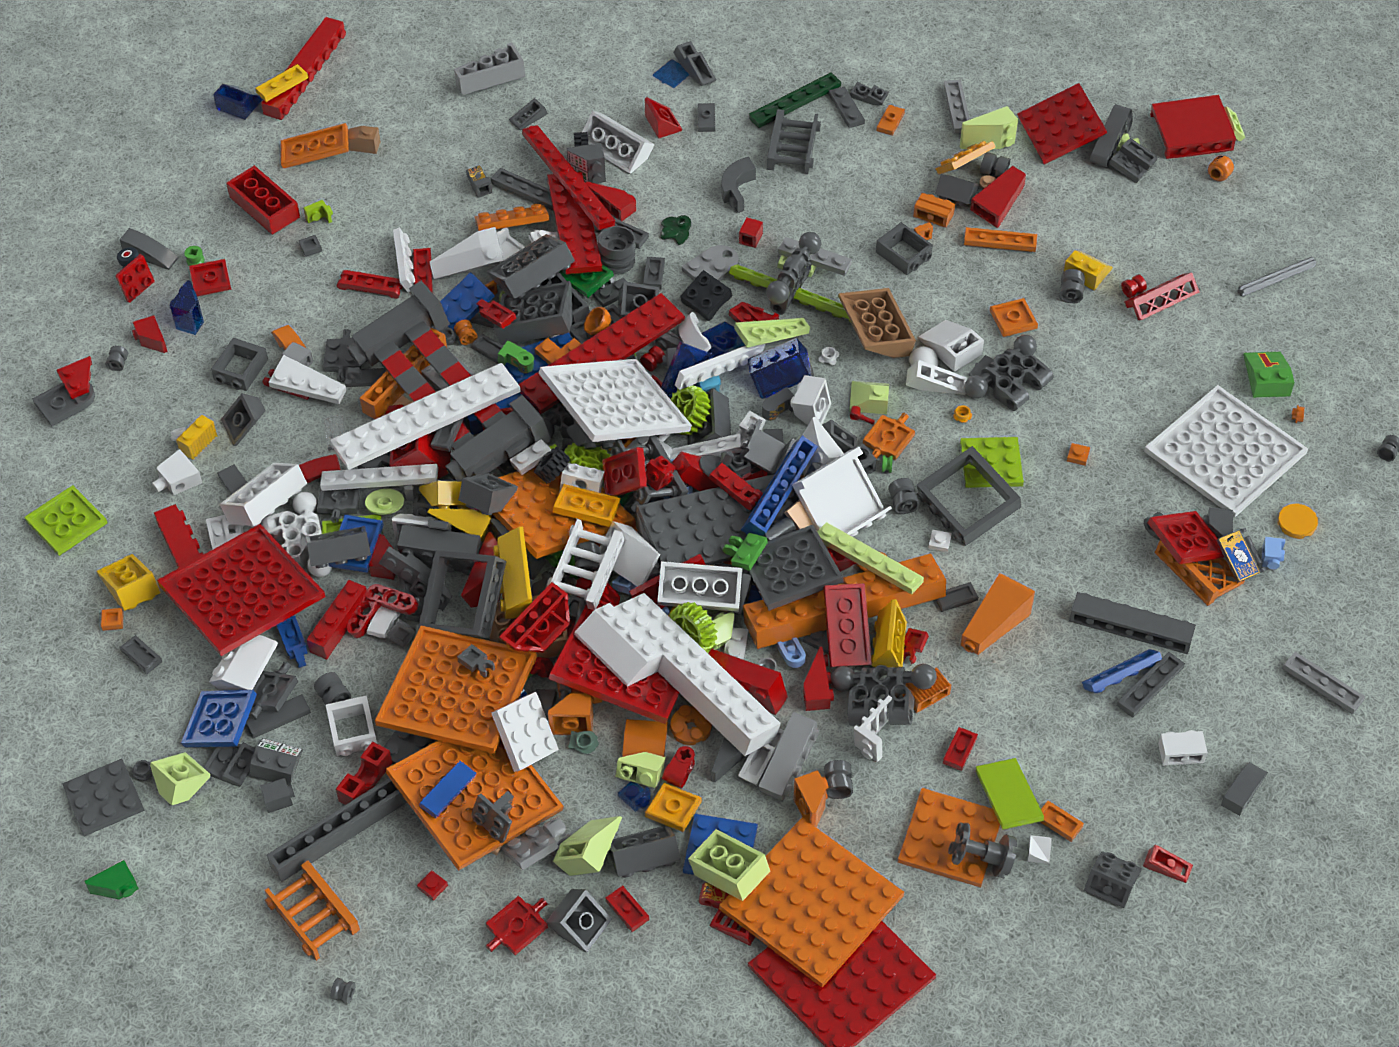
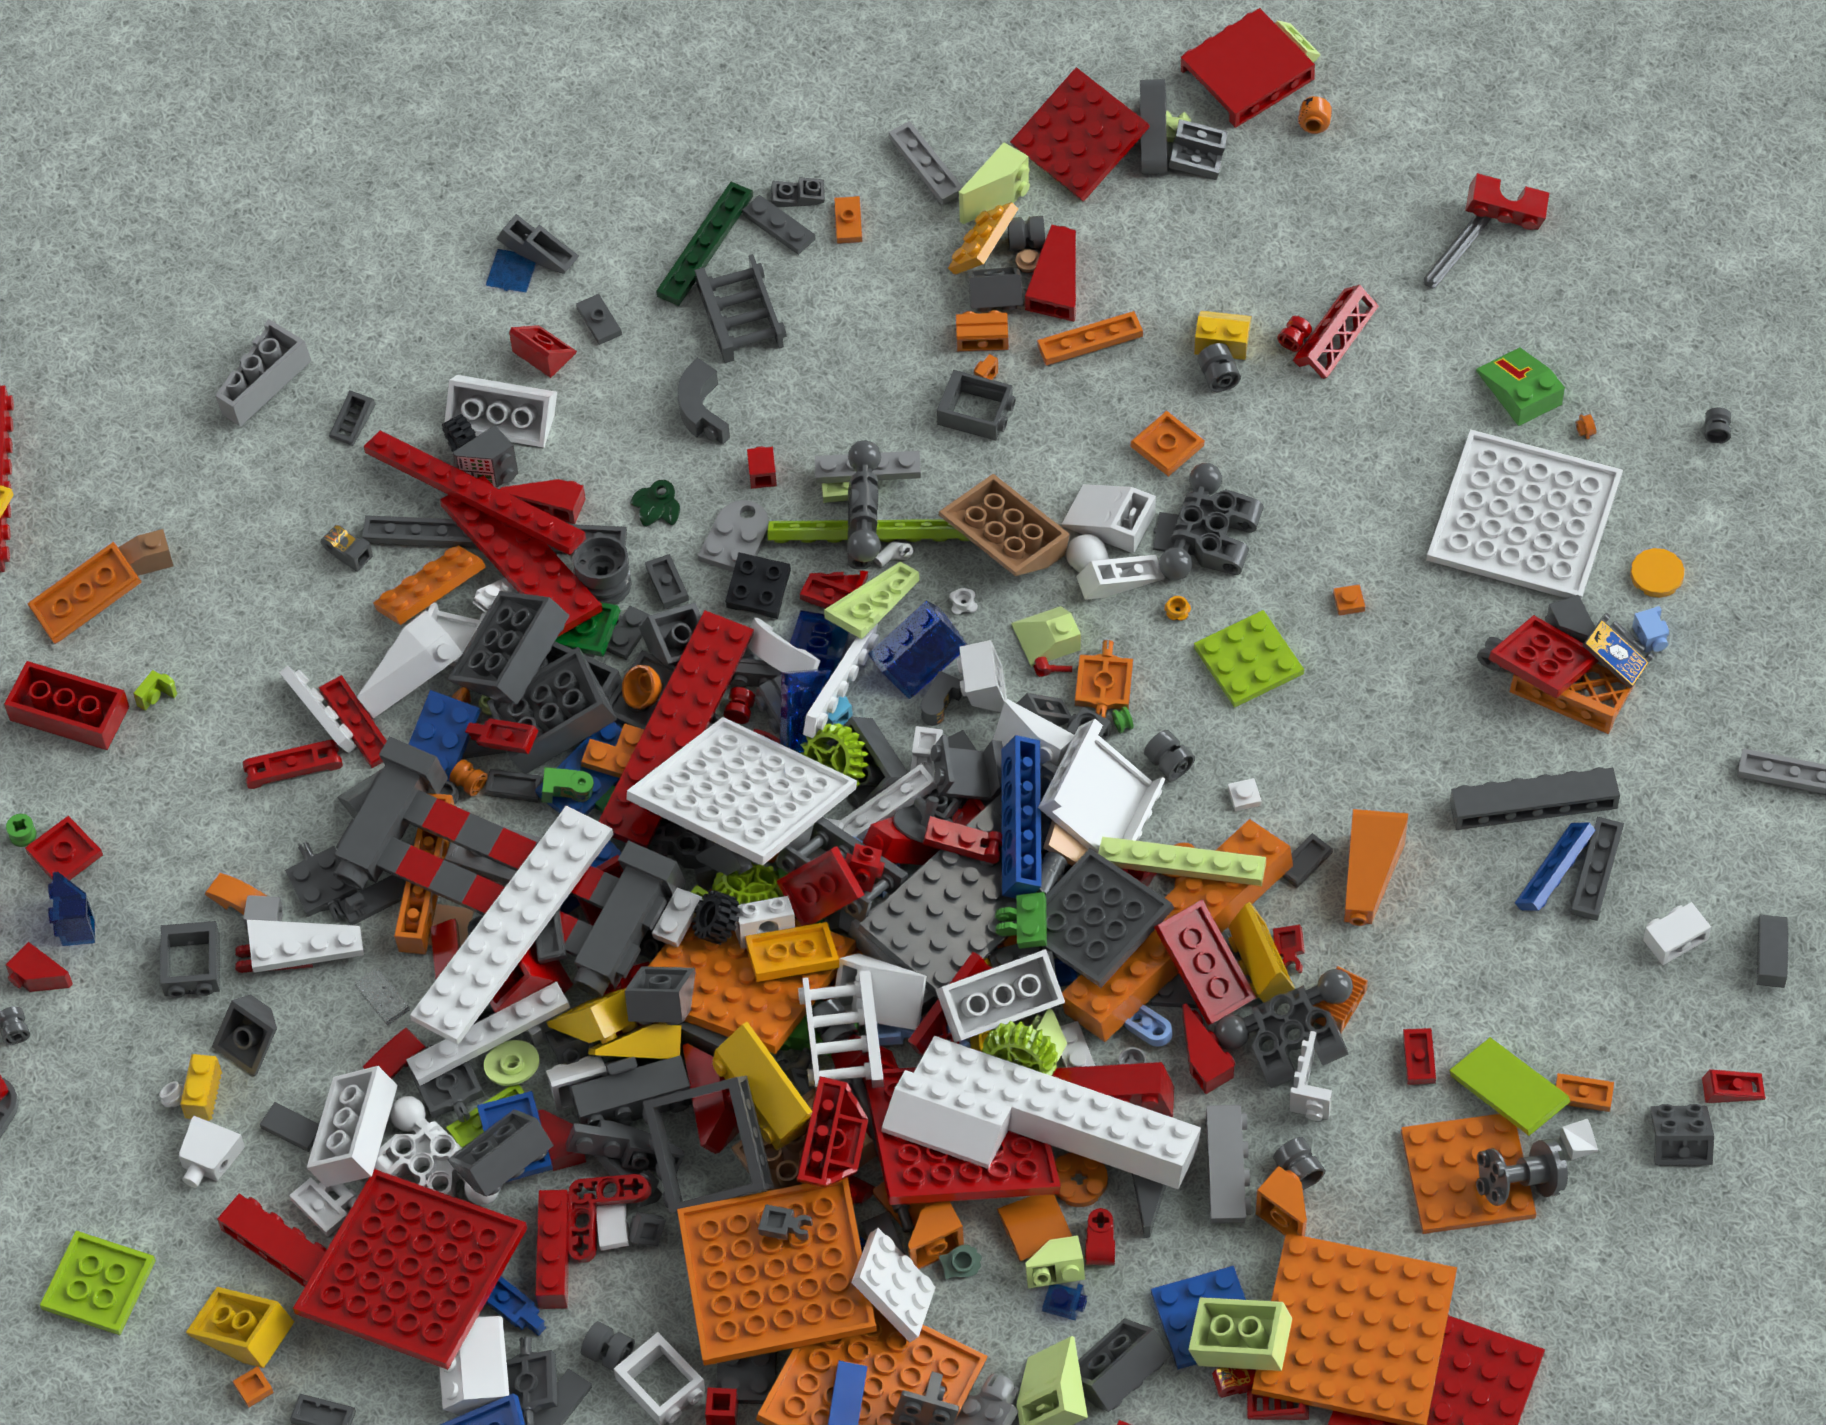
camera: 25 degrees left, 5 degrees up
(310, 245) = (173, 744): dark grey plate -> none
(673, 807) = (1120, 1293): light orange plate -> none
(759, 760) = (1190, 1195): white slope -> none
(803, 311) = (894, 551): none -> white arm
(966, 536) = (1267, 681): dark grey window -> none
(1306, 257) = (1487, 200): none -> red arch

